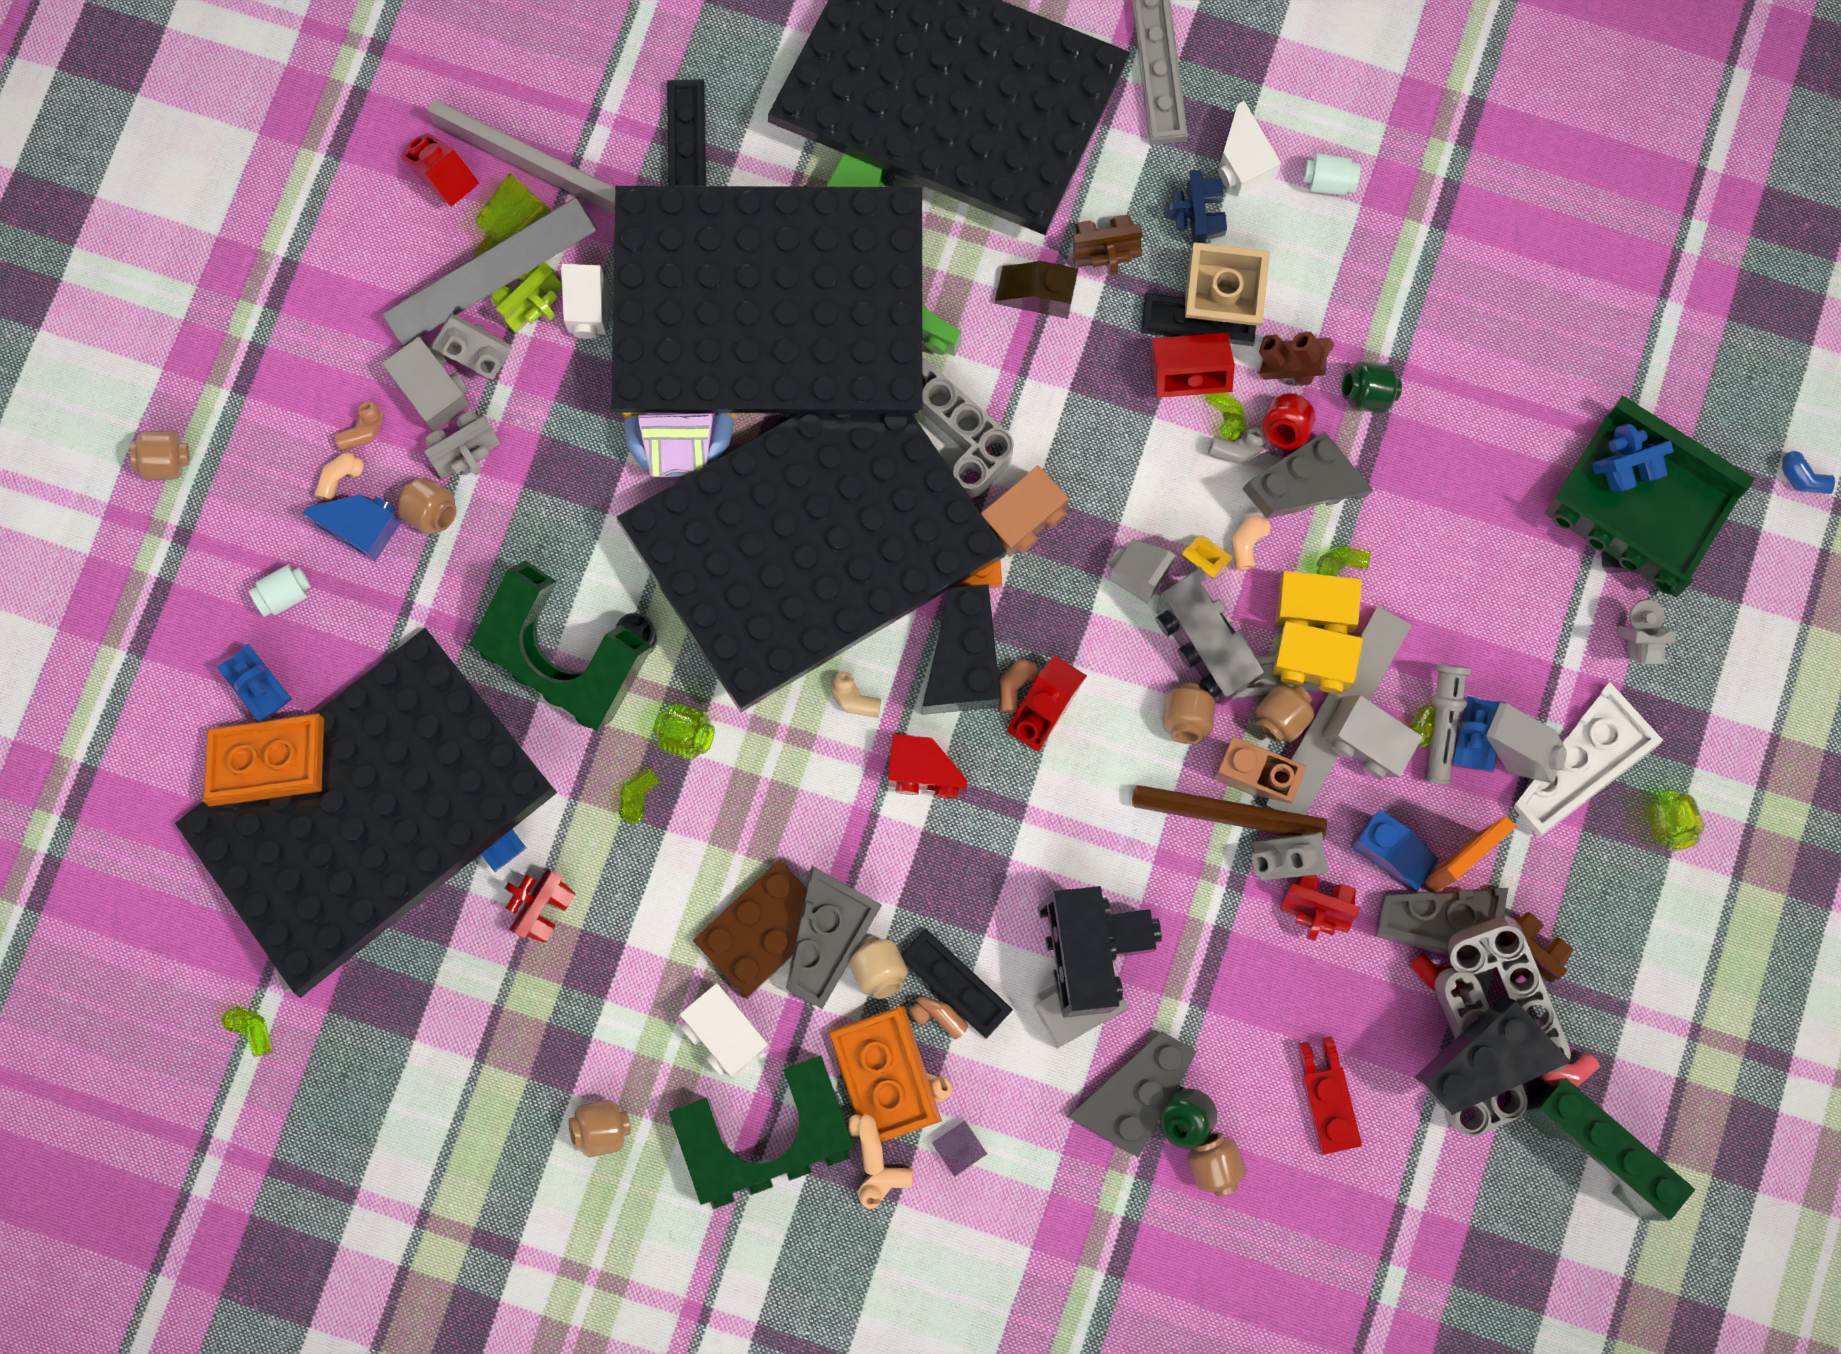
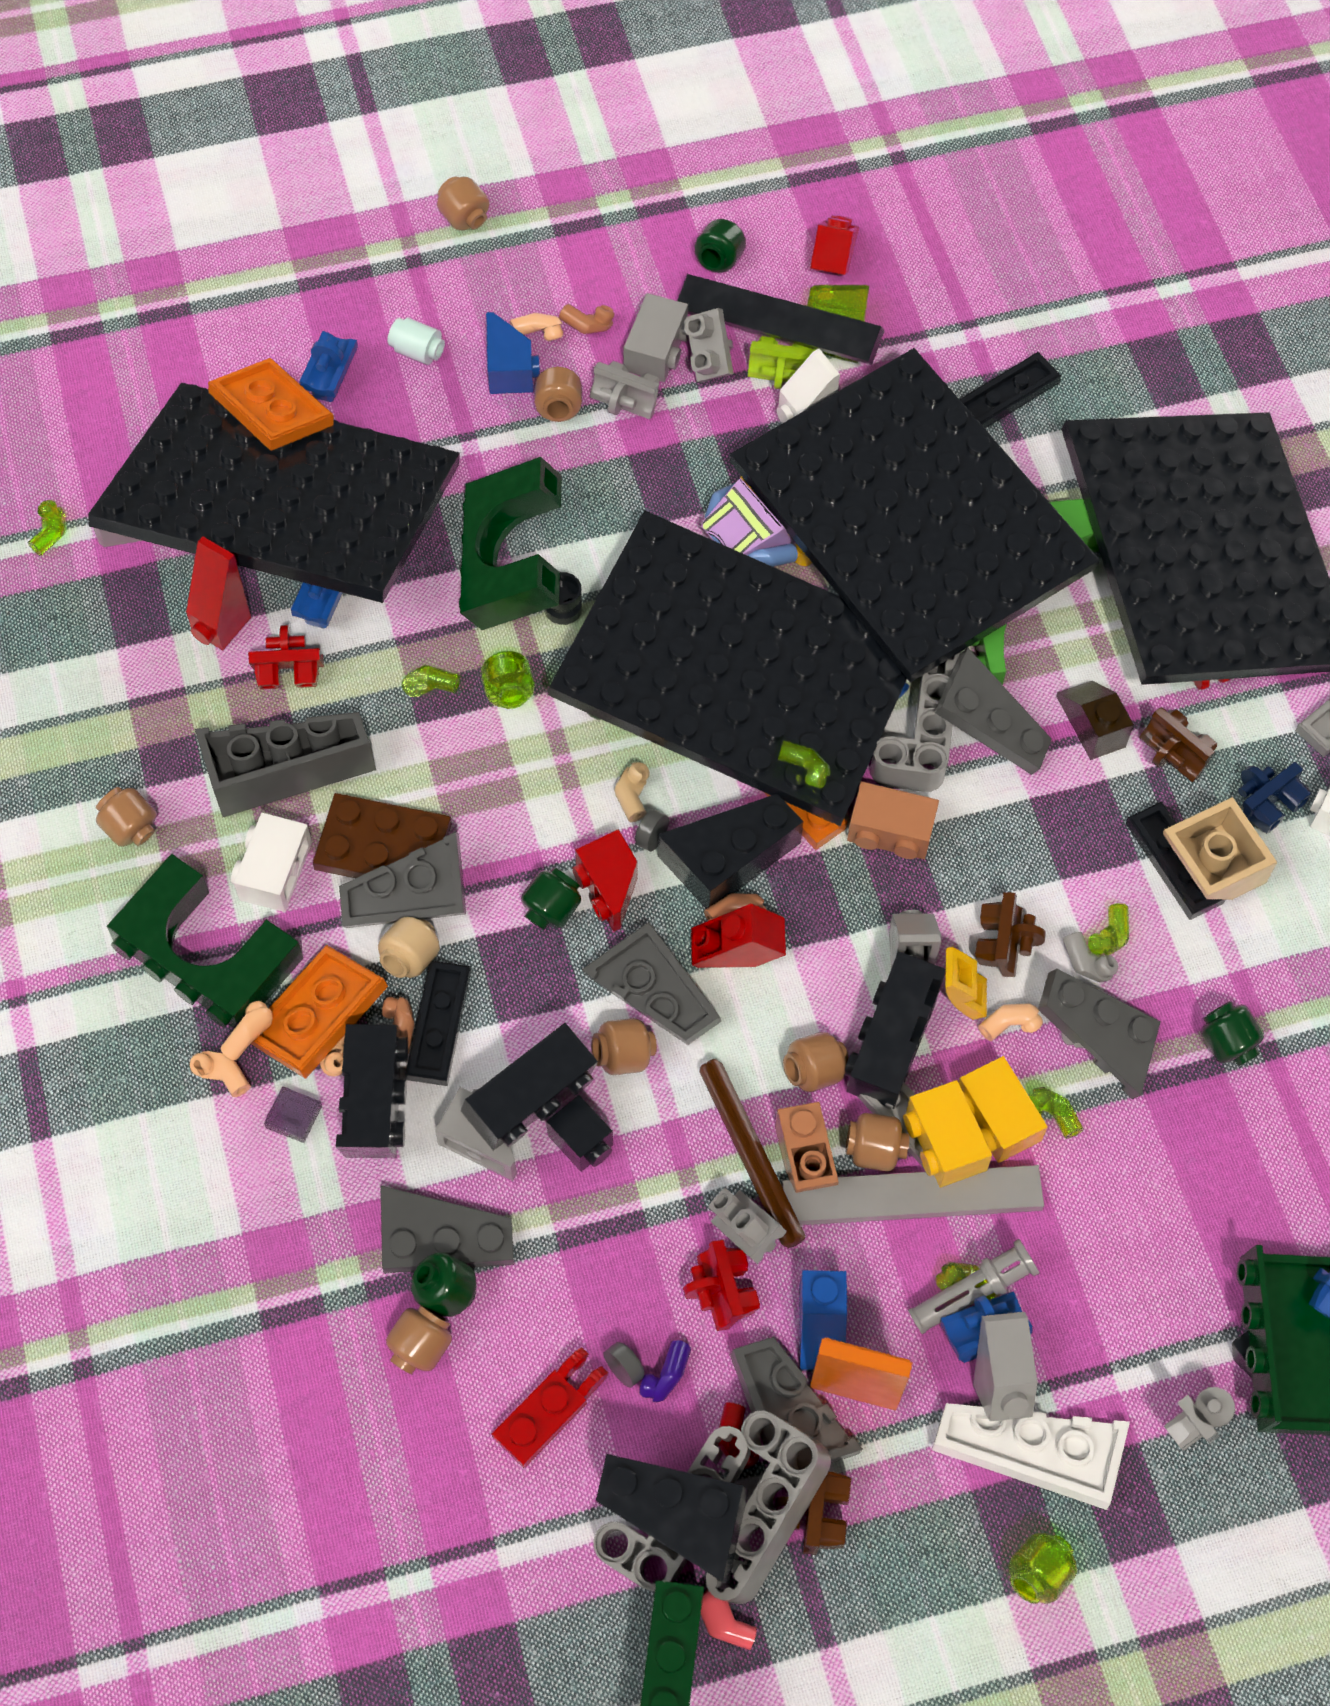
camera: 55 degrees right, 15 degrees down
(369, 265) = (720, 245): none -> dark green head
(444, 930) = (216, 596): none -> red slope
(522, 155) = (890, 281): light grey tile -> none
(635, 966) = (283, 759): none -> dark grey wedge
(903, 705) = (649, 828): none -> dark grey tile
(911, 826) = (551, 898): none -> dark green head
(944, 544) = (807, 758): none -> clear neon green arm
(986, 369) = (991, 714): none -> dark grey wing
(995, 1076) = (372, 1091): none -> black wedge
(1038, 792) = (655, 984): none -> dark grey wing
(1078, 853) = (623, 1046): none -> medium nougat head
(1191, 506) = (1008, 920): none -> reddish brown hips
(1192, 365) = (1127, 871): red brick -> none
(1288, 421) = (1142, 981): red head -> none
(1295, 359) = (1203, 949): copper hips -> none
(1334, 1020) = (624, 1364): none -> dark grey tile
(1364, 992) = (672, 1372): none -> dark purple arm
(1371, 737) = (909, 1229): light grey brick -> none

